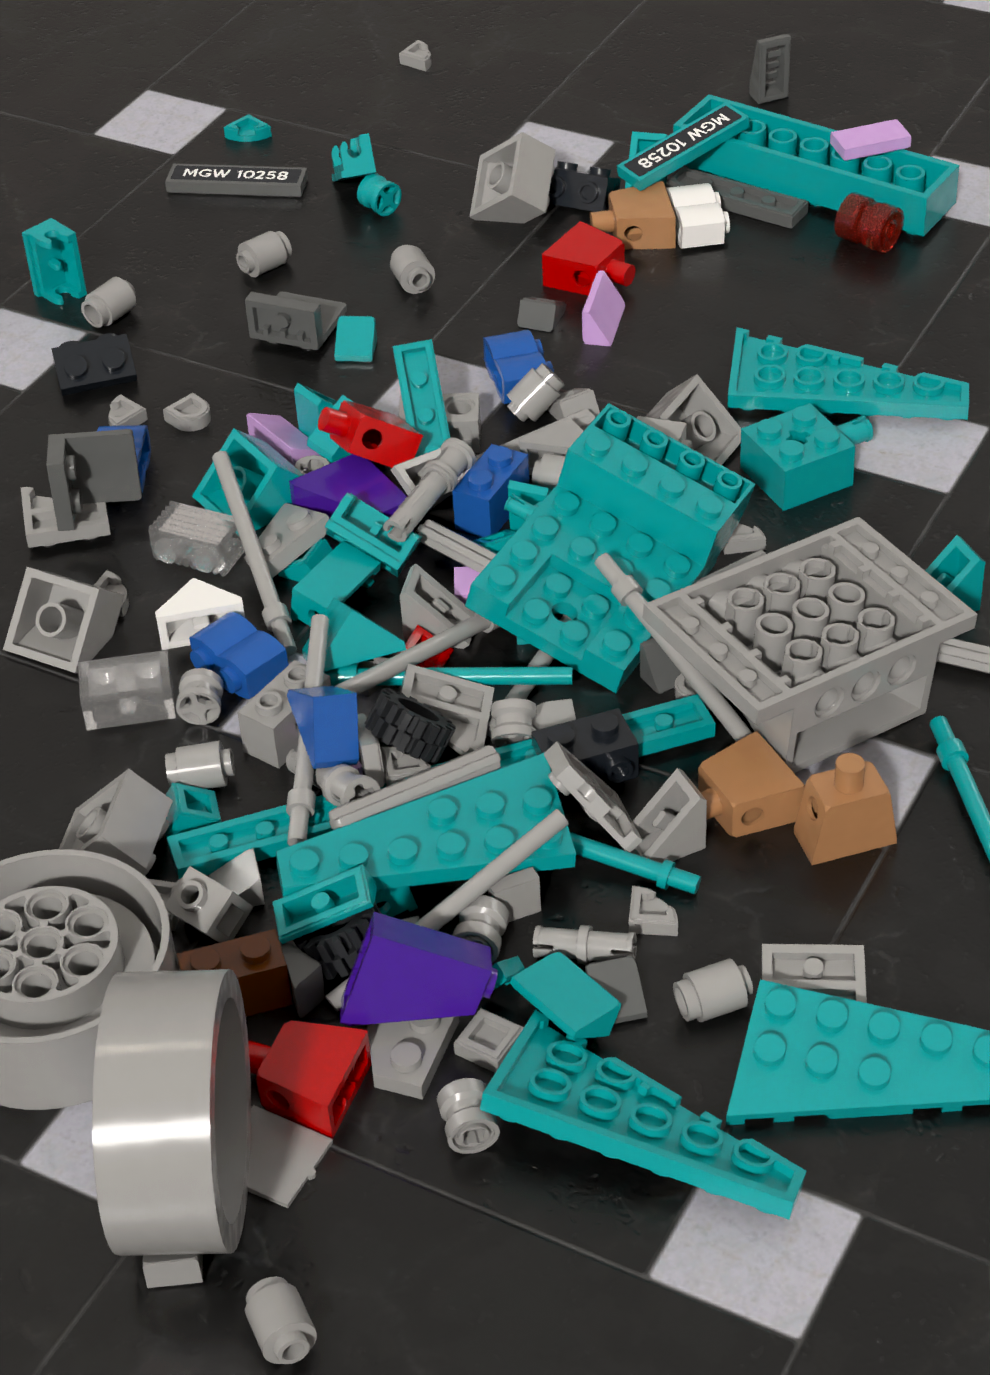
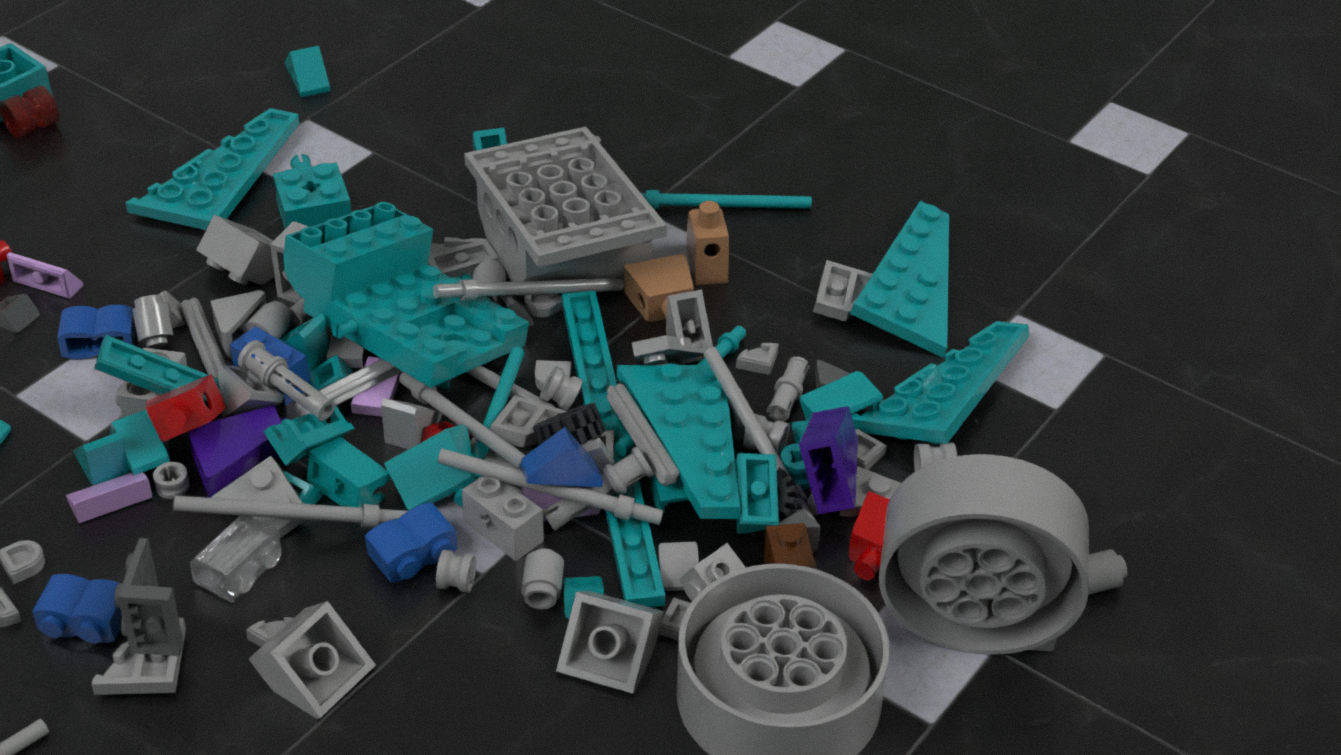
camera: 85 degrees left, 0 degrees up
(126, 690) = (427, 619): clear brick -> none
(192, 610) = (343, 563): white slope -> none
(260, 474) = (170, 532): teal slope -> none
(599, 742) = (602, 350): black bracket -> none
(713, 990) = (845, 335): light grey brick -> none

